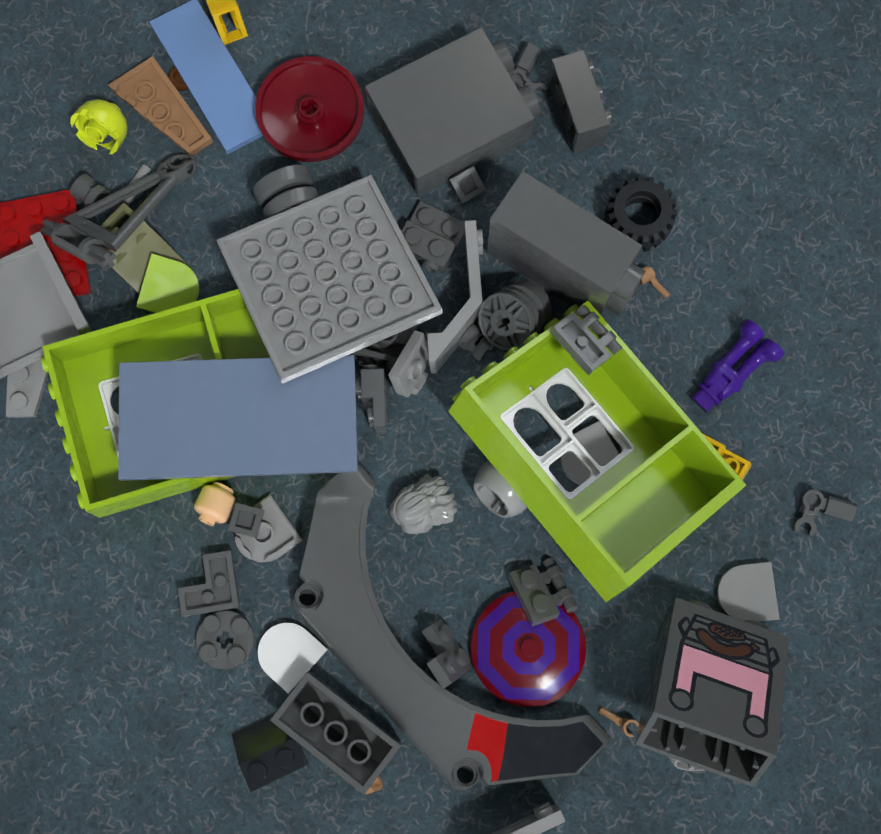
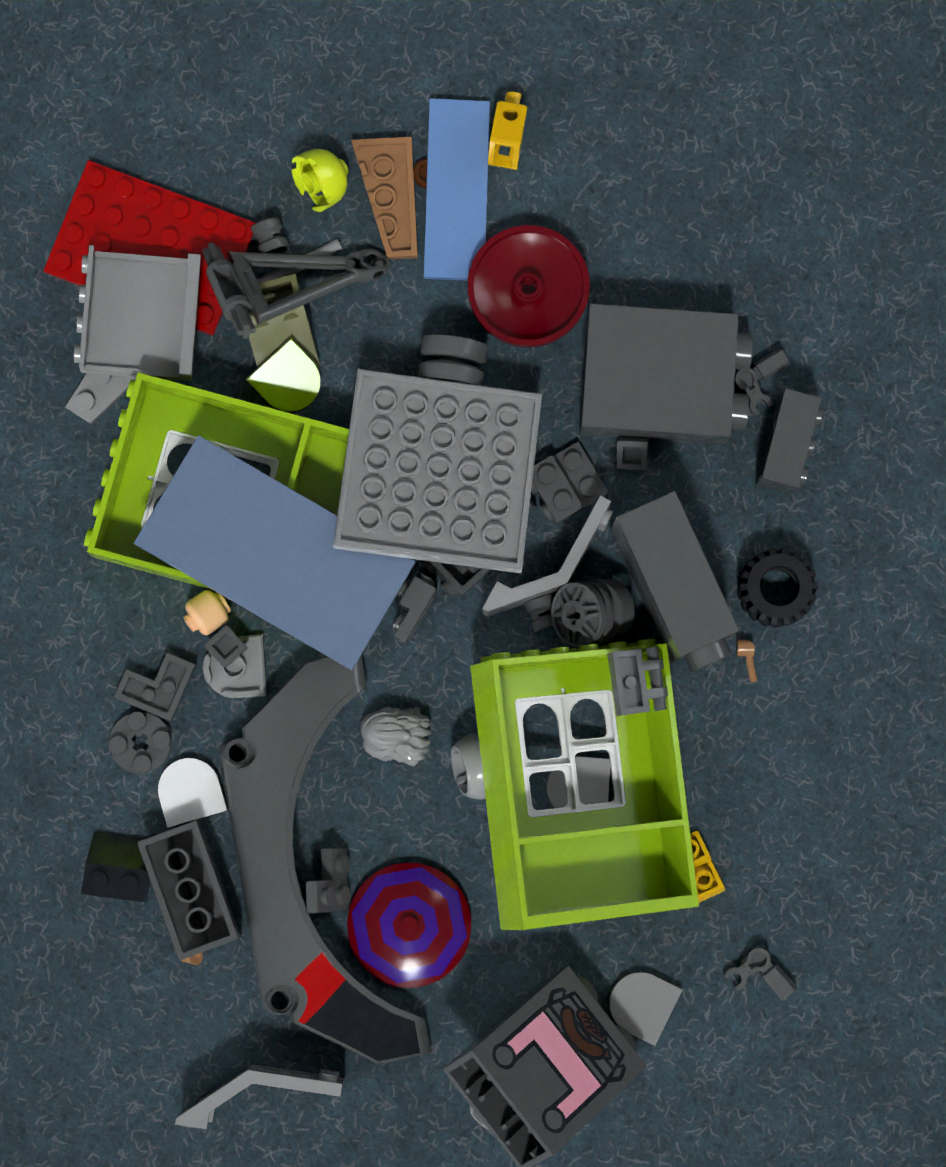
camera: 30 degrees right, 5 degrees up
(408, 371) = (462, 601): light grey tile -> none
(534, 595) = (444, 881): dark grey plate -> none
(622, 722) = (449, 1042): medium nougat hand -> none
(722, 380) = (749, 793): dark purple piece -> none

